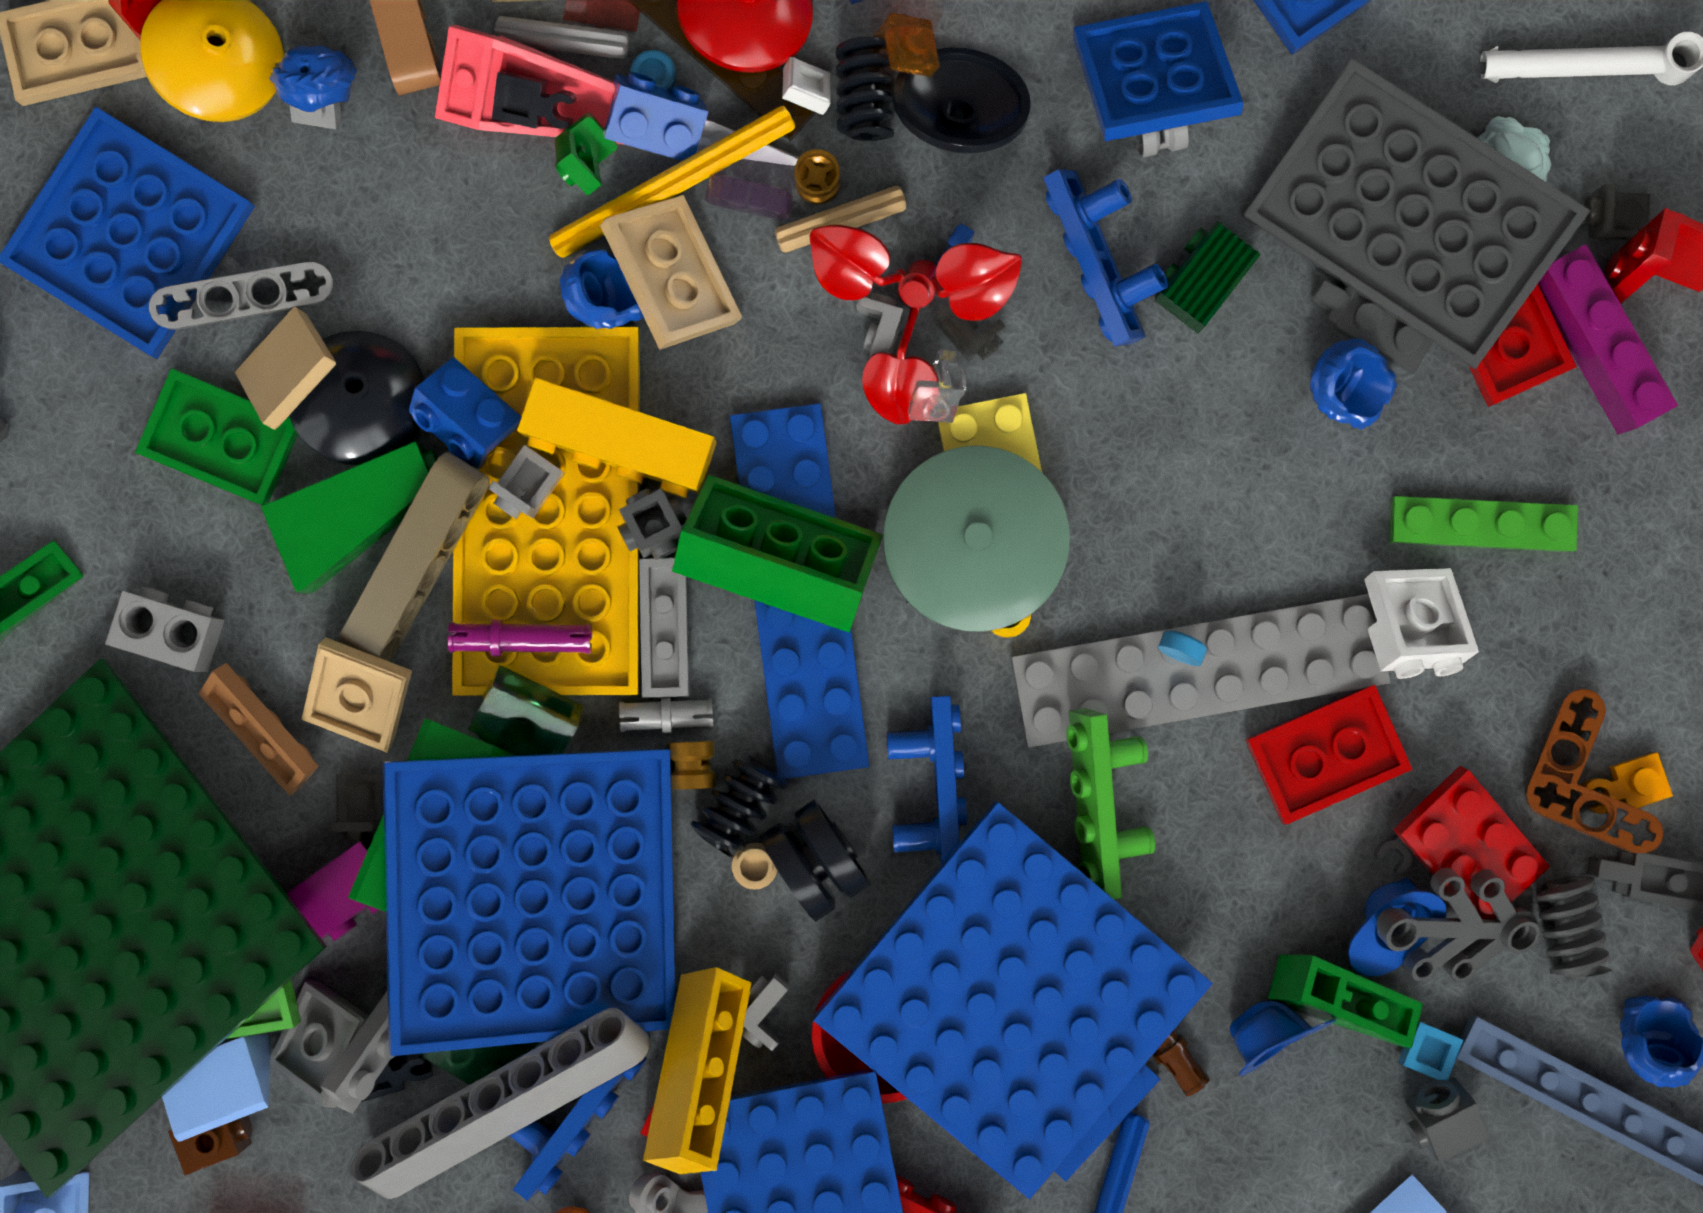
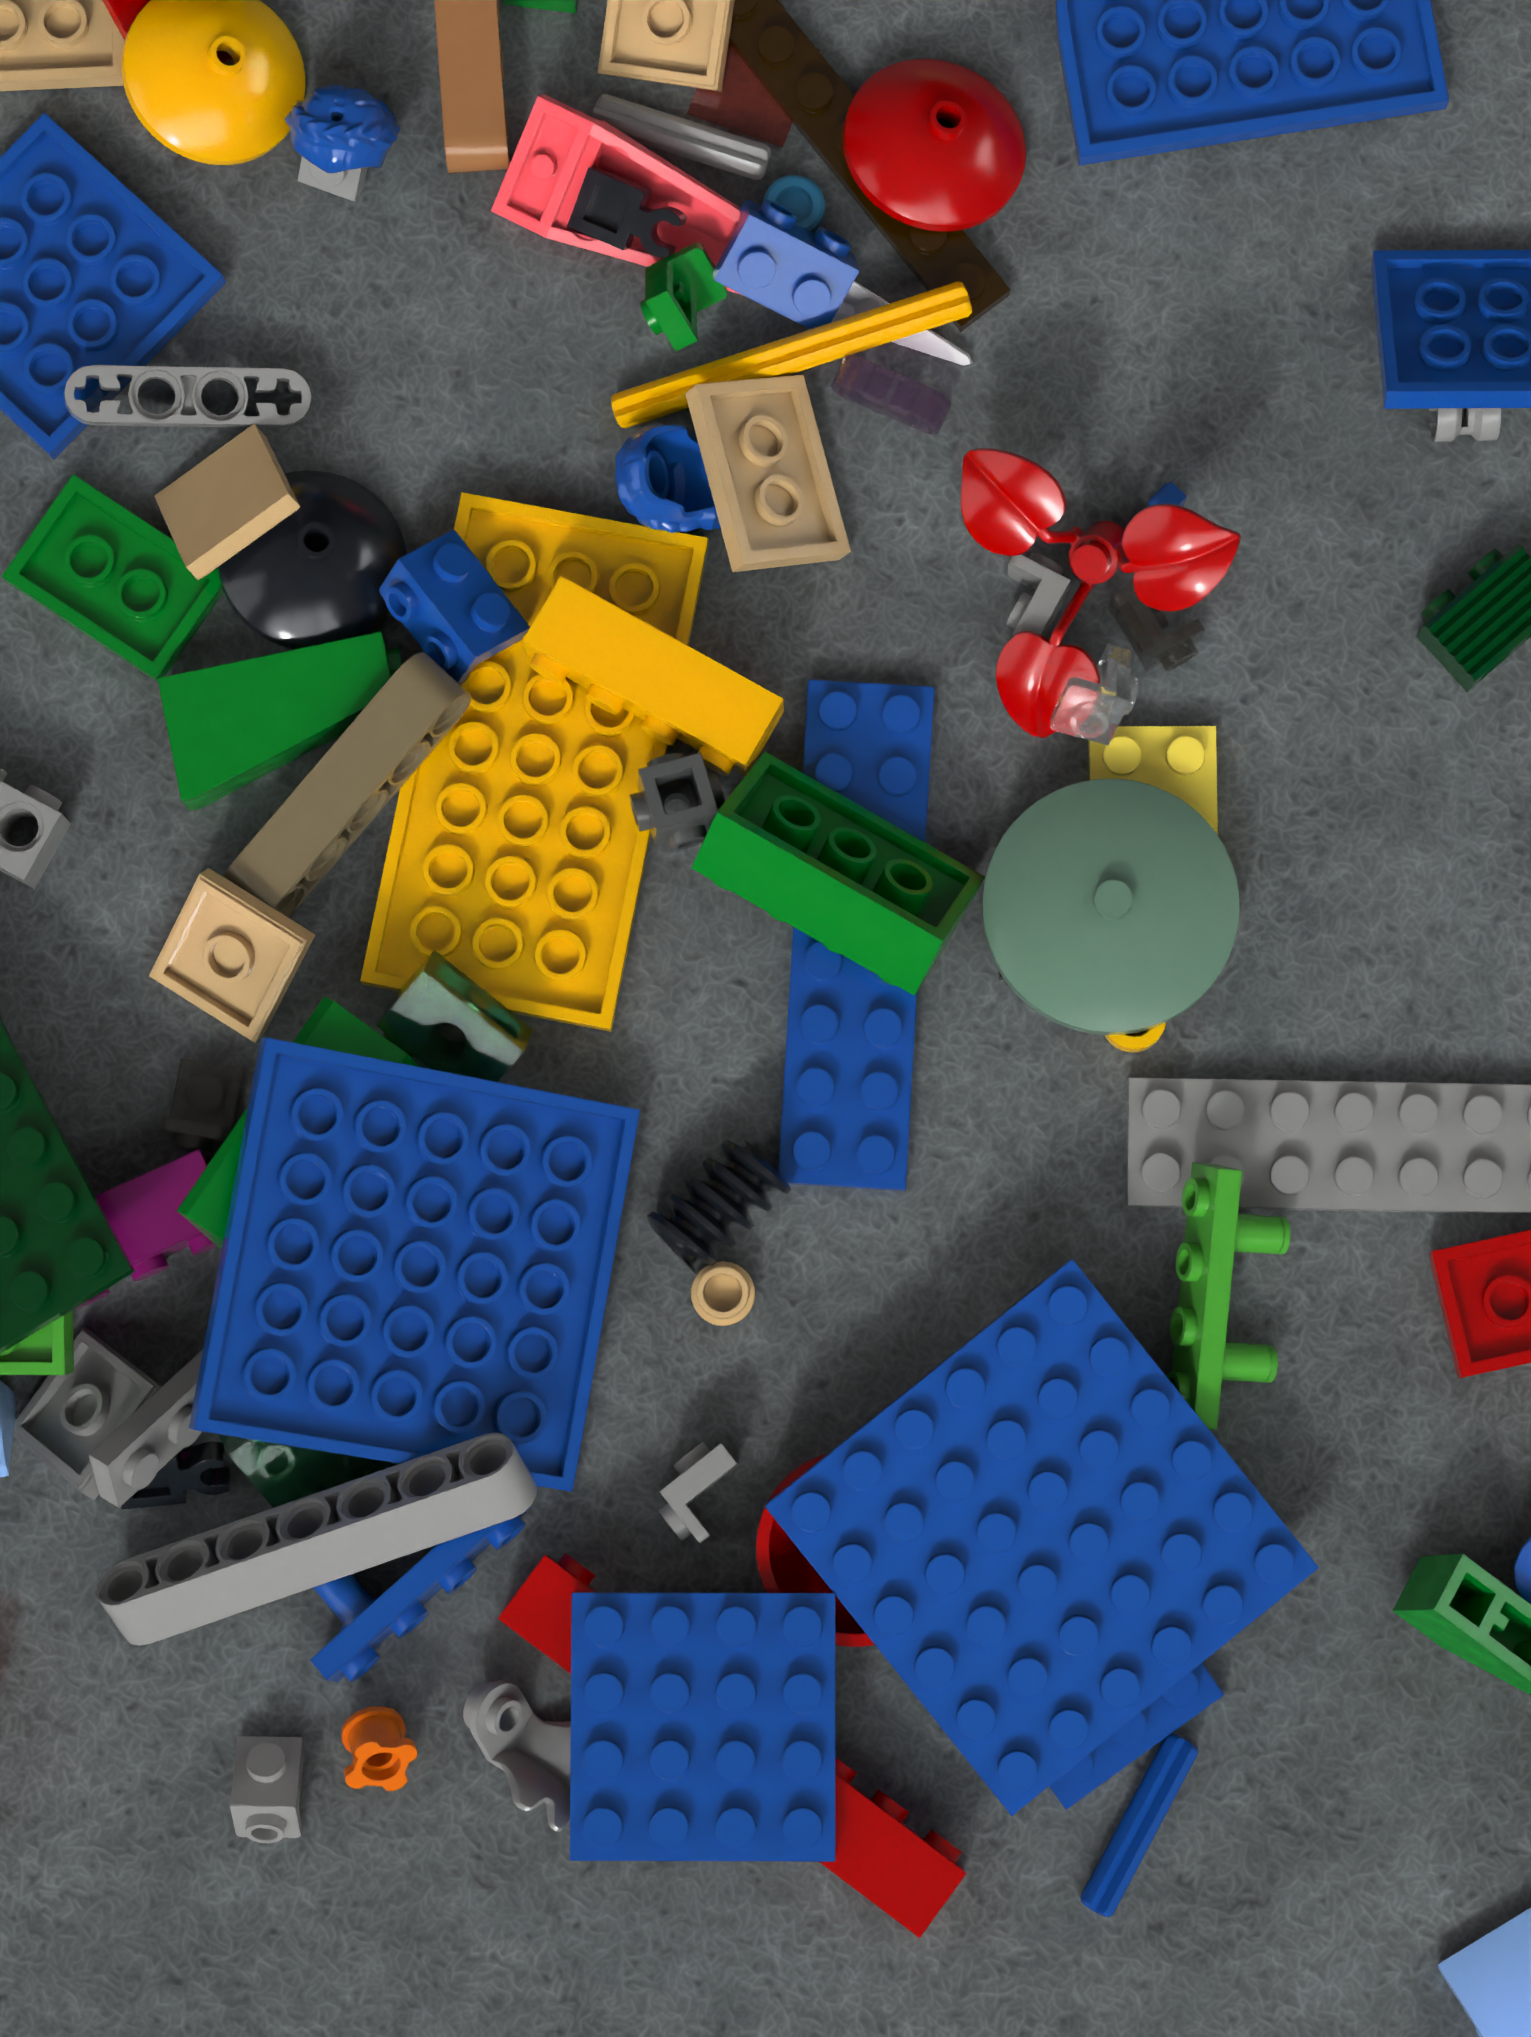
camera: 20 degrees right, 5 degrees down
(258, 728) = (89, 976): medium nougat plate -> none
(519, 638) = (468, 919): magenta pin -> none
(526, 484) = (518, 715): light grey bracket -> none
(664, 629) = (662, 949): light grey plate -> none
(666, 715) = (643, 1064): light grey pin -> none
(692, 765) = (665, 1137): pearl gold wheel -> none
(698, 1072) = (595, 1543): yellow brick -> none
(806, 85) = (997, 261): white tile -> none
(815, 168) = (985, 373): pearl gold wheel -> none
(820, 856) = (809, 1293): black wheel -> none
(852, 214) = (1033, 442): tan axle -> none
(861, 89) = (1070, 280): black piece -> none
(909, 44) = (1145, 232): clear orange bracket -> none
(936, 744) = (1005, 1178): blue plate -> none
(966, 104) = (1202, 318): black dish -> none
(1086, 241) = (1337, 541): blue plate -> none
(1181, 1064) = (1254, 1675): reddish brown pin -> none
(1182, 647) = (1363, 1105): dark azure tile -> none
(1267, 1030) = (1388, 1657): blue piece -> none

